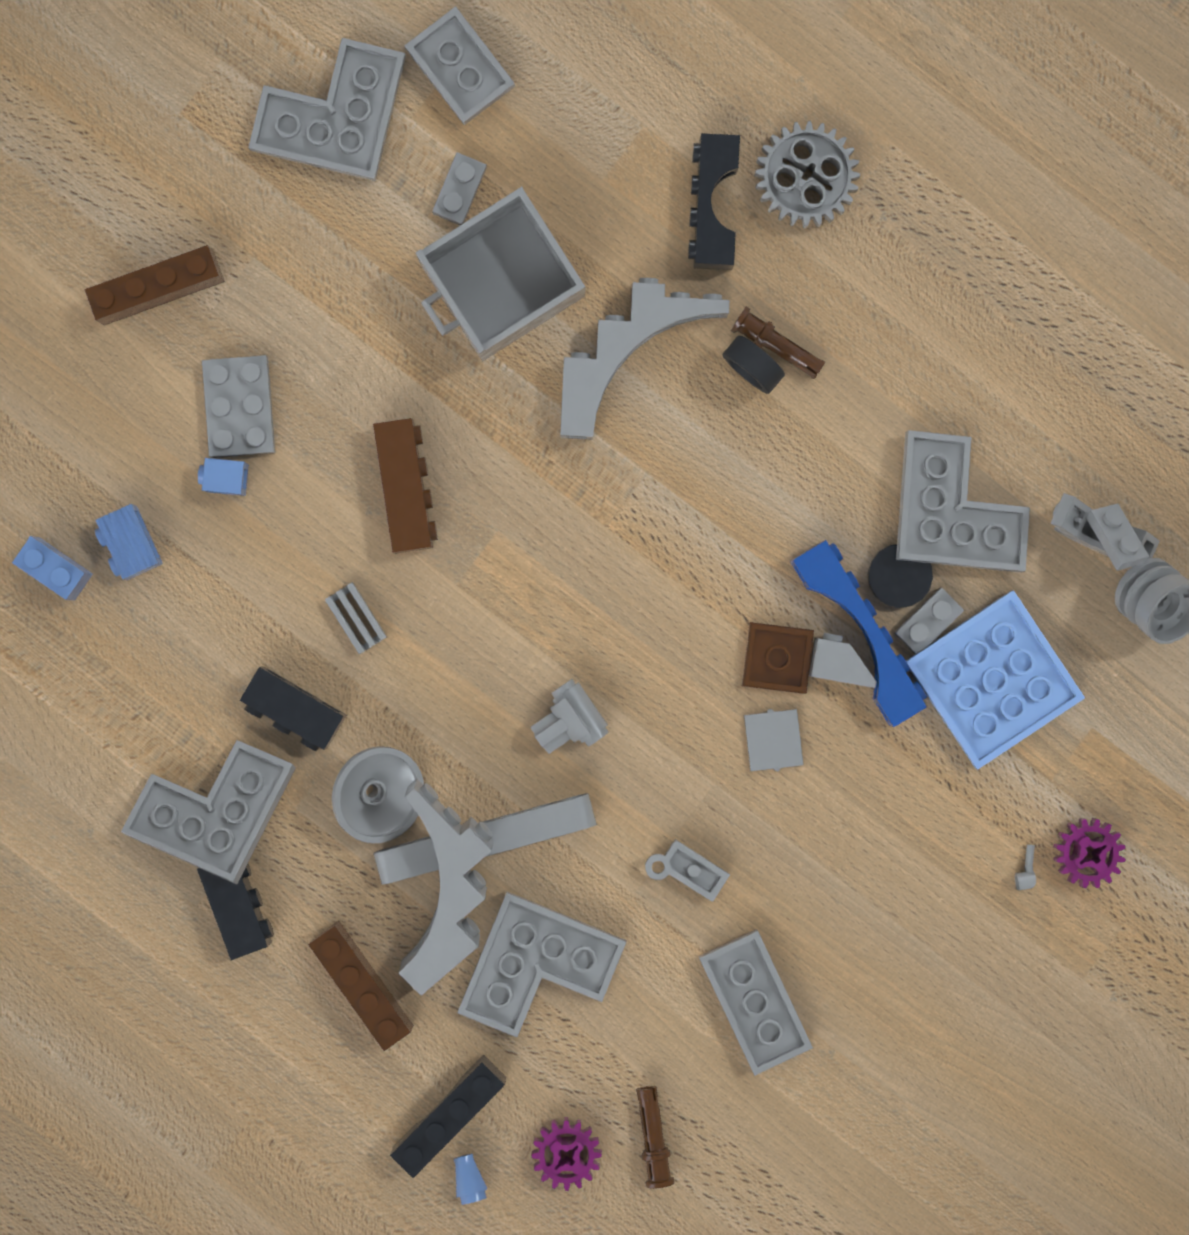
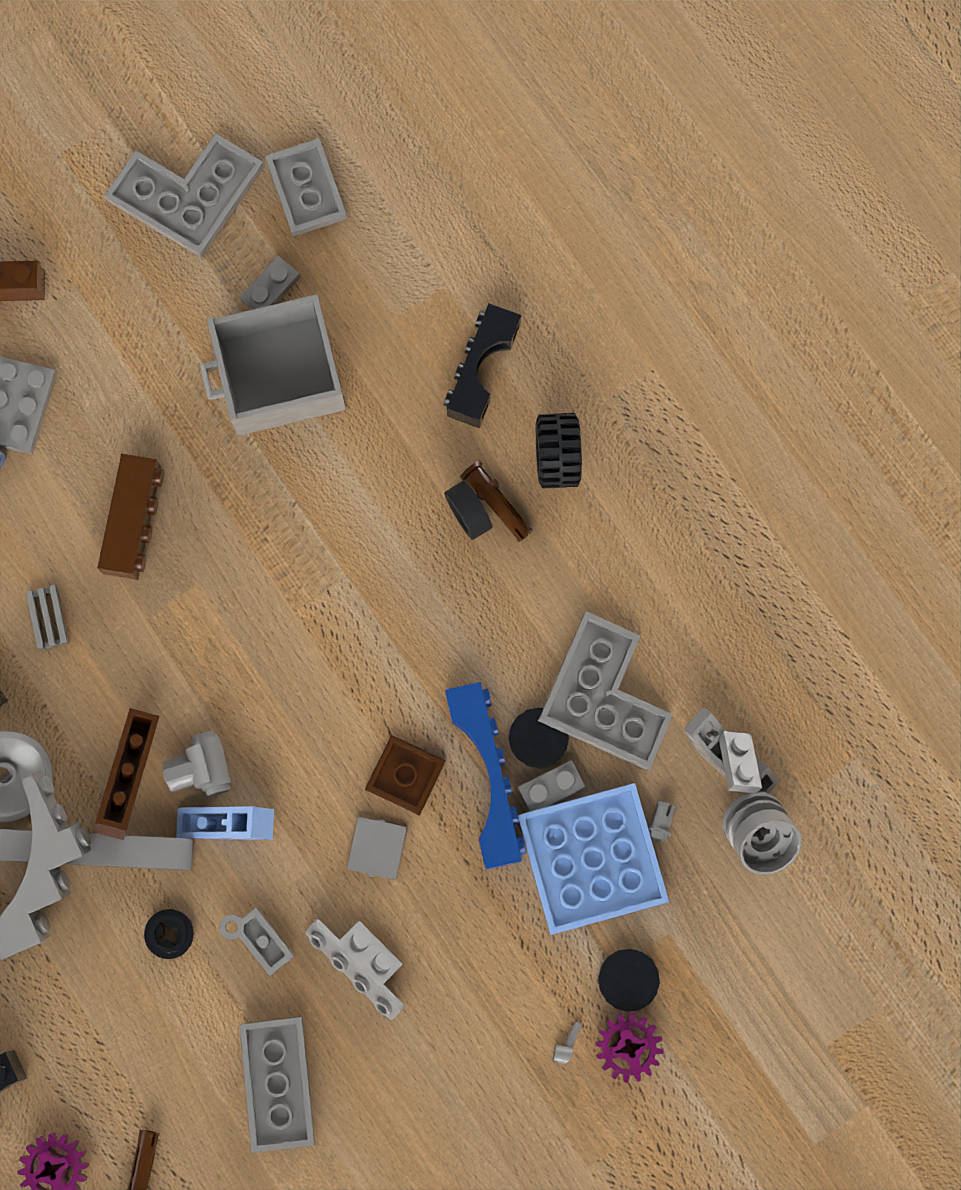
camera: 20 degrees right, 10 degrees down
(501, 752) = (126, 774): none -> reddish brown brick
(532, 945) = (85, 962): light grey plate -> none
(598, 909) = (155, 931): none -> black gear
(614, 767) = (225, 823): none -> light blue slope
(616, 340) = (395, 441): light grey arch -> none
(799, 856) = (362, 961): none -> light grey bracket
(822, 150) = (590, 352): light grey gear -> none
(828, 270) = (558, 450): none -> black tyre
(838, 662) = (457, 796): light grey slope -> none
(1052, 619) = (662, 821): none -> light grey pin
(1067, 787) = (628, 980): none -> black tile

